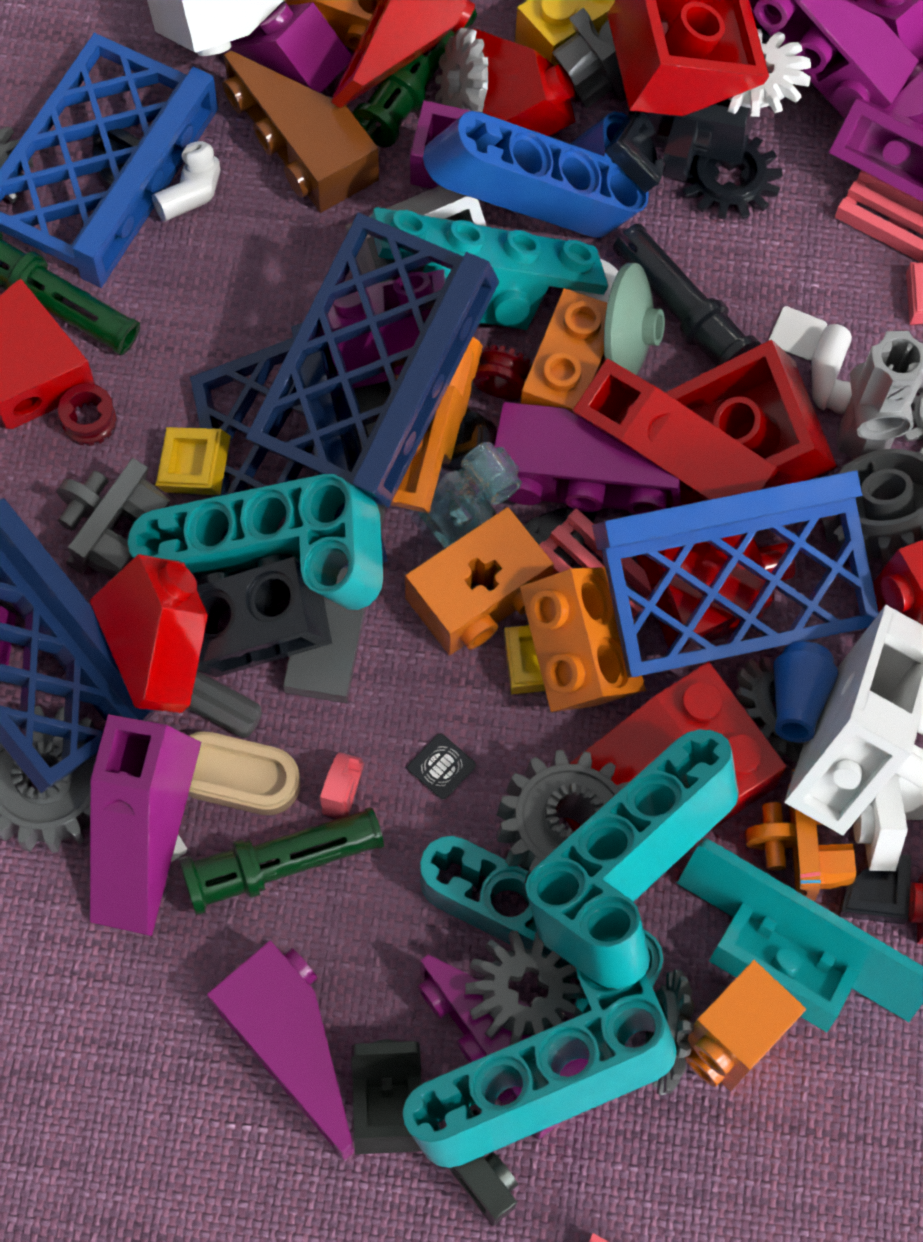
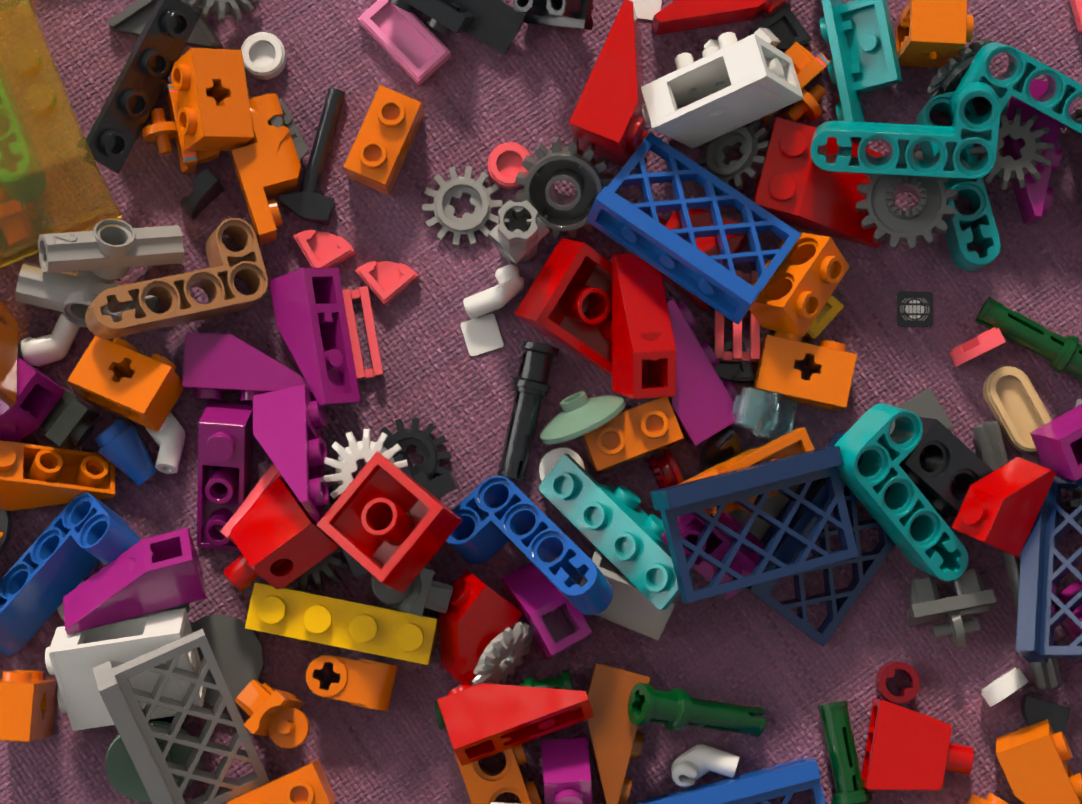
camera: 130 degrees left, 15 degrees up
(193, 460) = (873, 594): yellow tile -> none
(264, 175) = (678, 709): none -> dark green pin
(635, 151) = (470, 505): black tile -> none
(802, 686) = (725, 143): blue cone -> none

